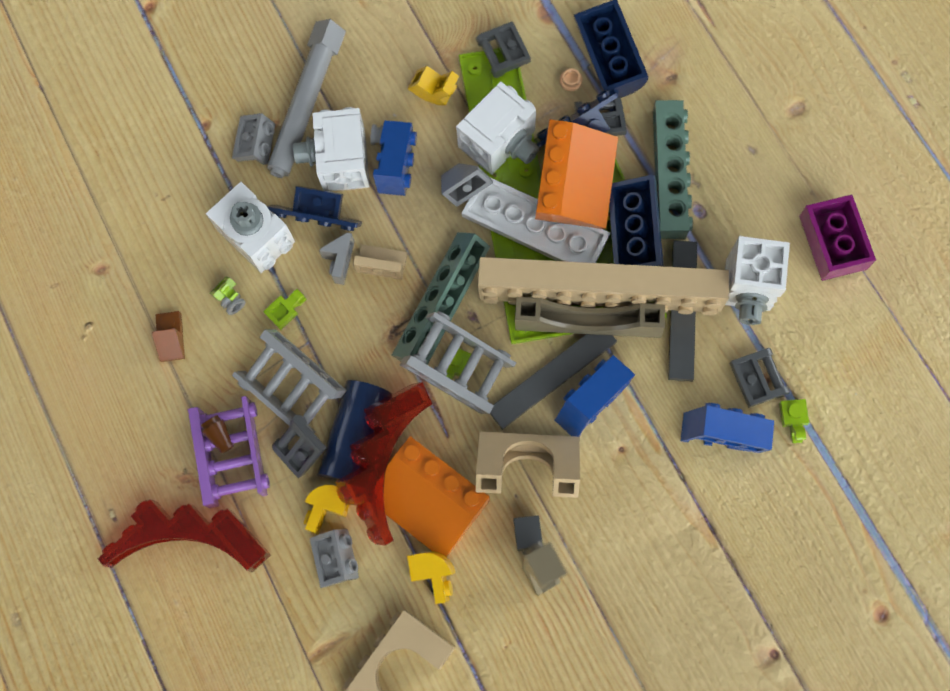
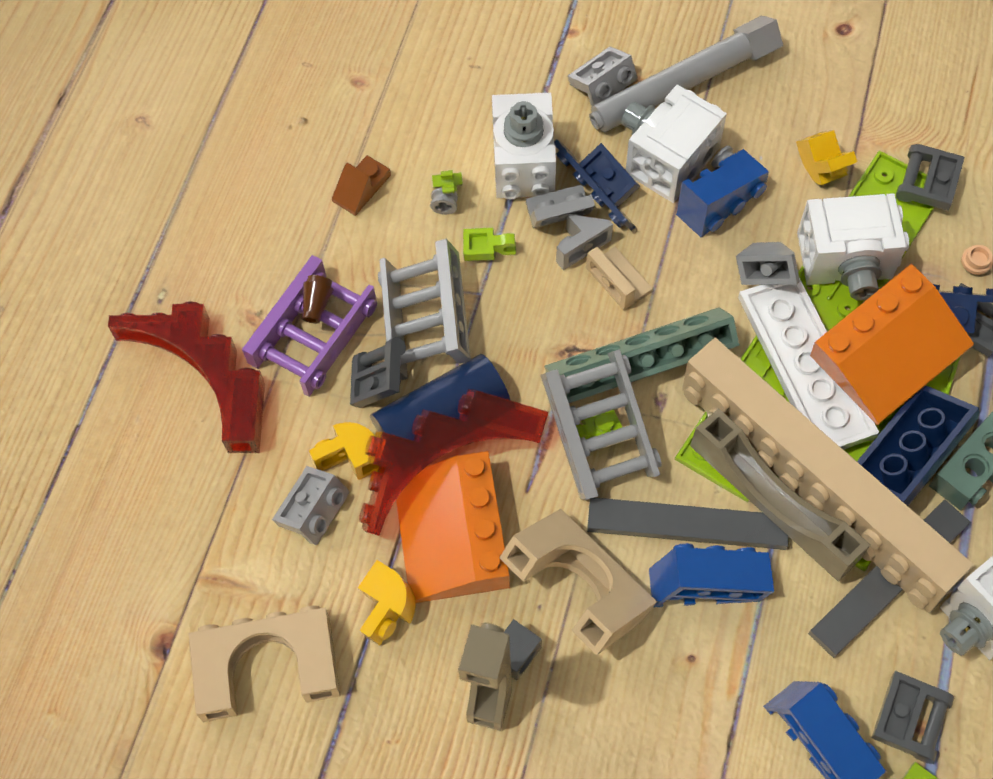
camera: 40 degrees right, 10 degrees down
(306, 247) = (558, 204): none -> light grey bracket

